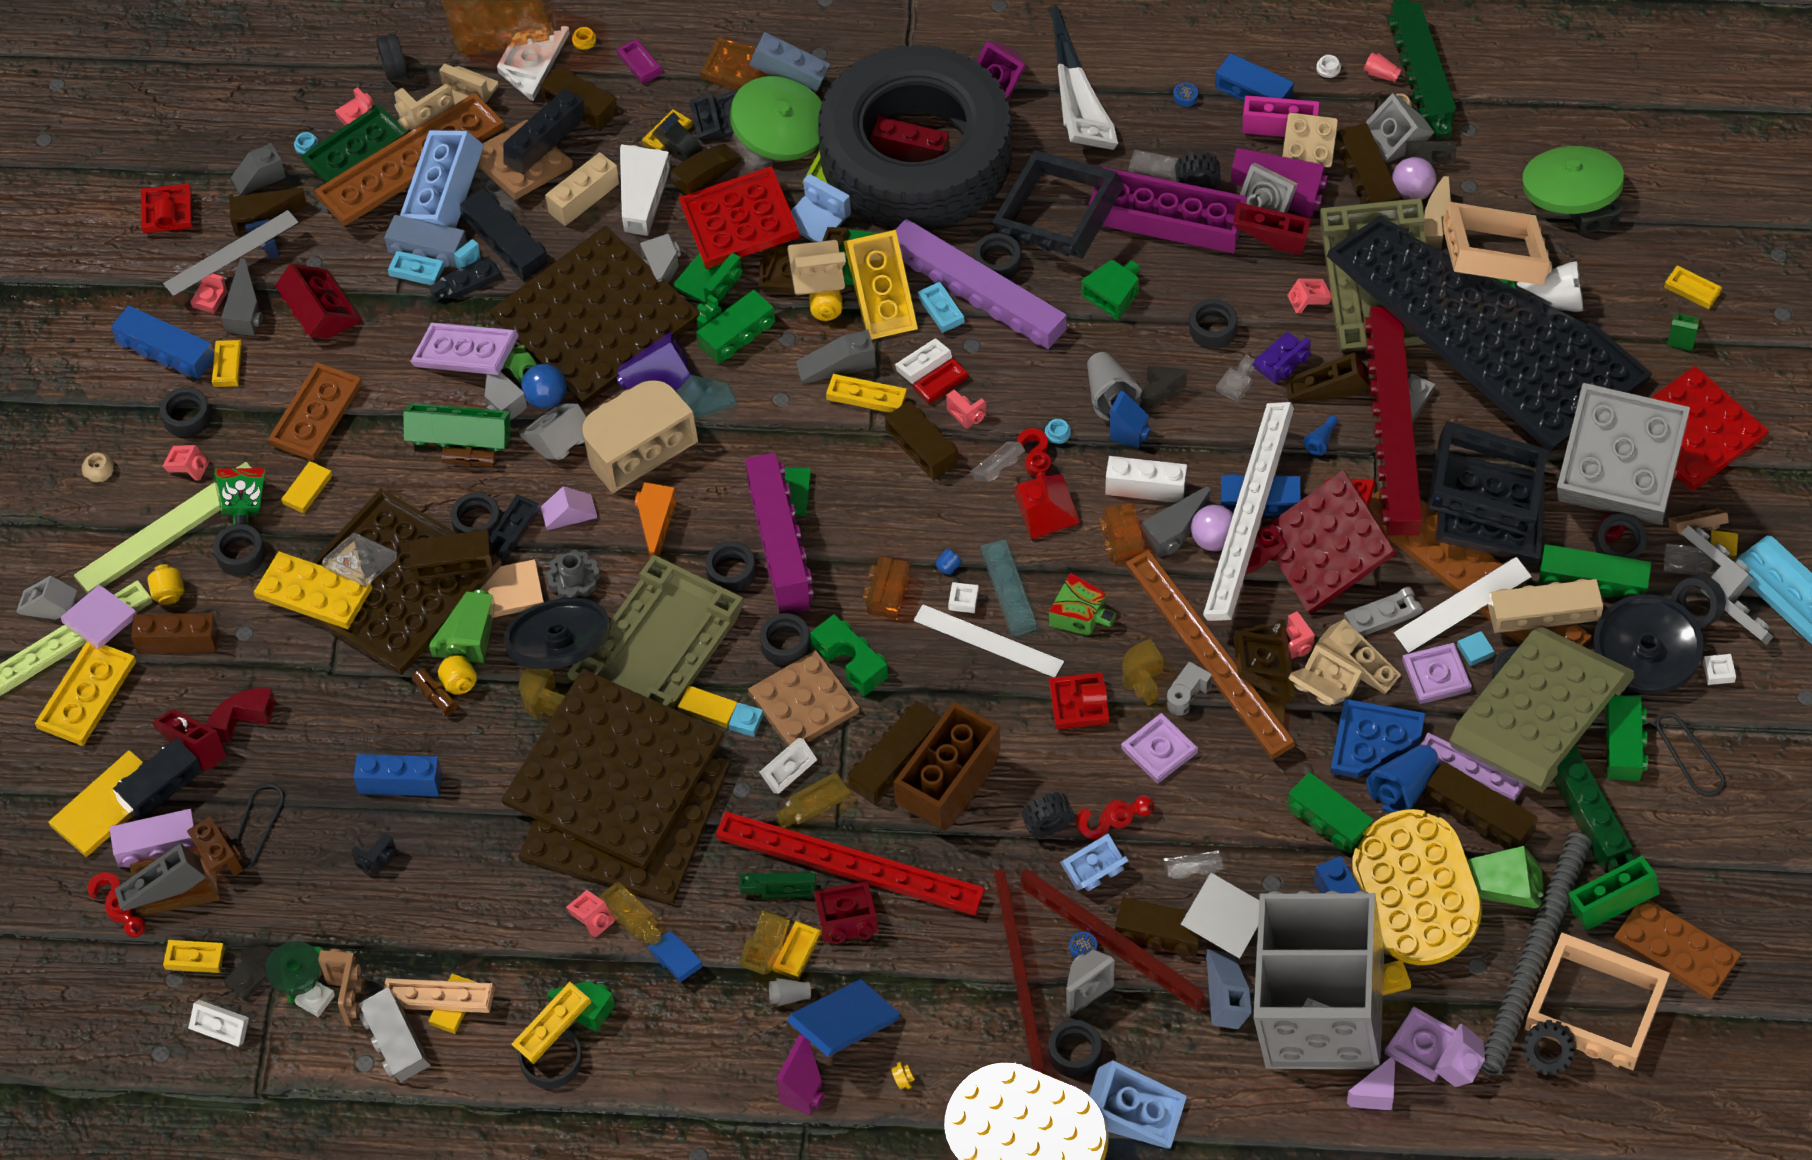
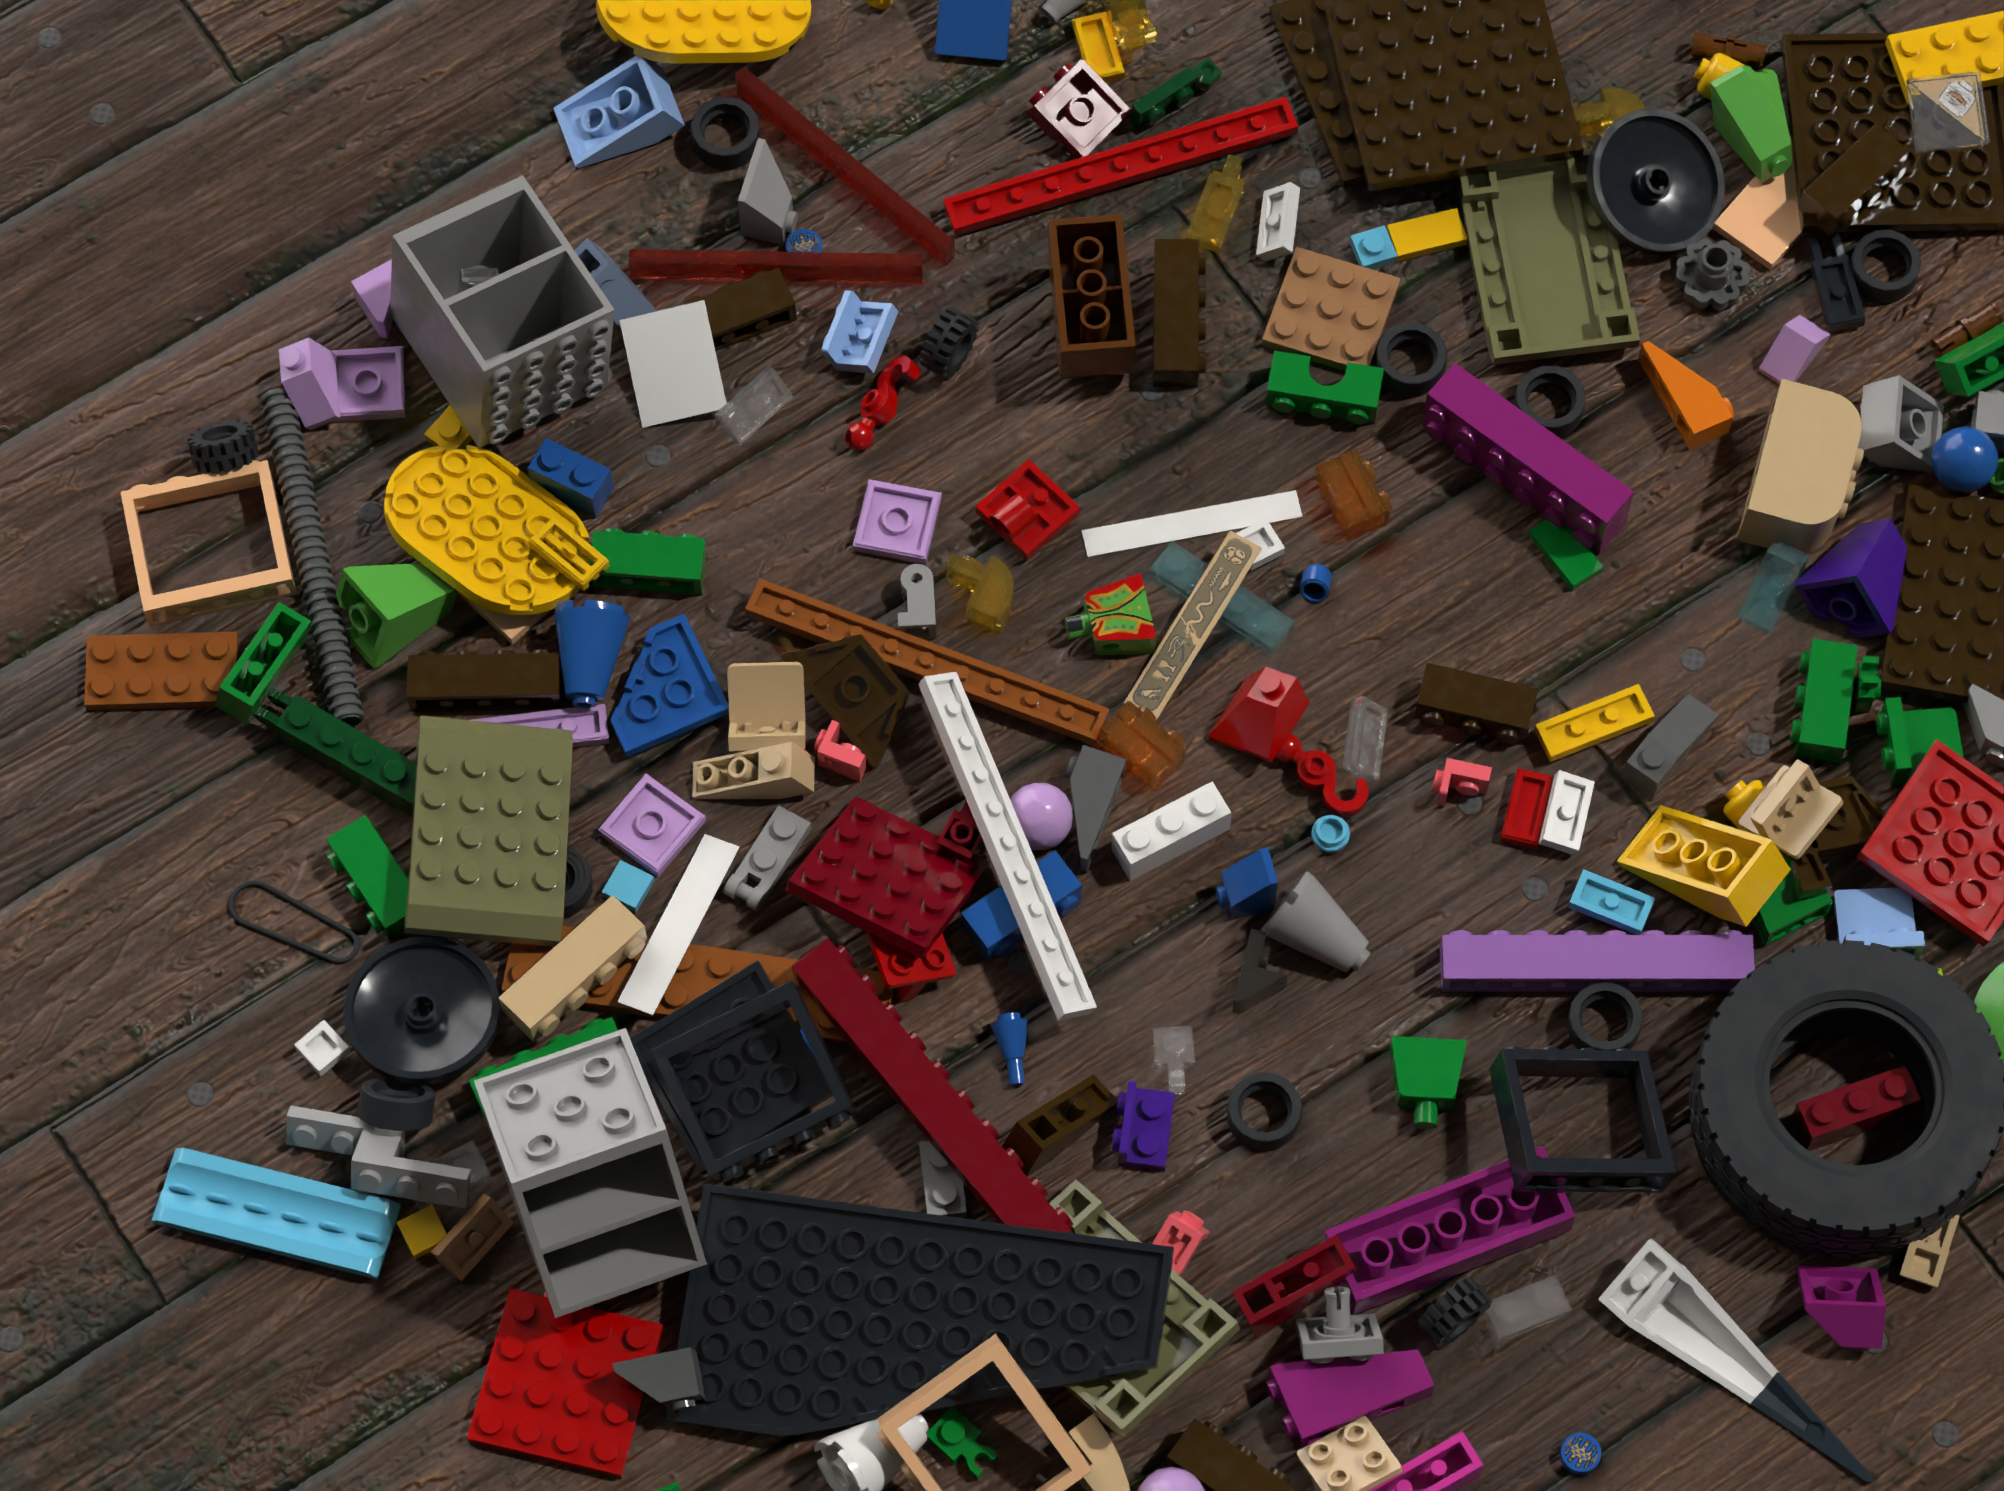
camera: 140 degrees right, 10 degrees up
(1038, 577) = (1194, 623): none -> sticker
(1383, 852) = (559, 563): none -> yellow tile
(1642, 378) = (667, 1377): none -> dark grey slope

